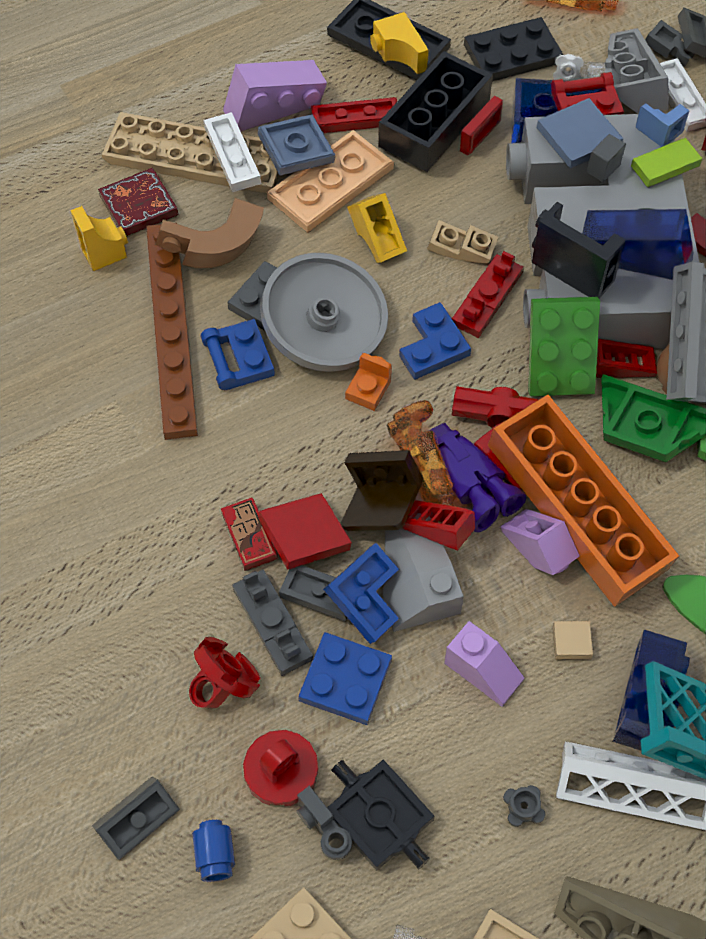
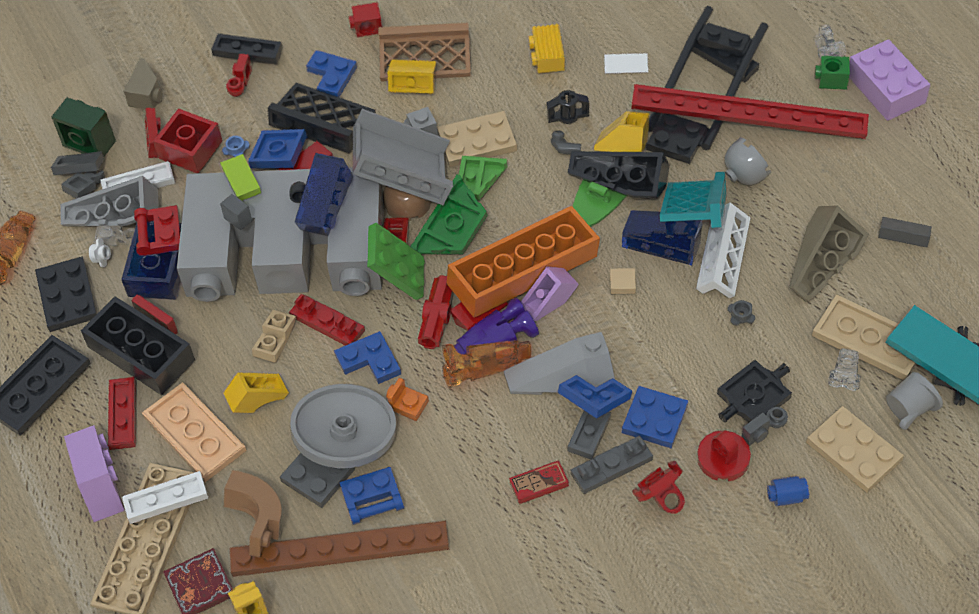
camera: 85 degrees left, 5 degrees down
(135, 817) = (764, 548): dark grey slope -> none
(296, 144) = (158, 451): sand blue tile -> none
(304, 530) = (540, 439): red tile -> none
(384, 491) = (514, 385): dark brown bracket -> none
(399, 41) = (58, 364): yellow arch -> none
(452, 532) = (536, 337): red slope -> none
(483, 663) = (642, 332): lavender slope -> none
(574, 256) = (337, 234): black panel -> none
(576, 131) = (202, 230): sand blue tile -> none
(659, 126) = (205, 177): medium blue panel -> none

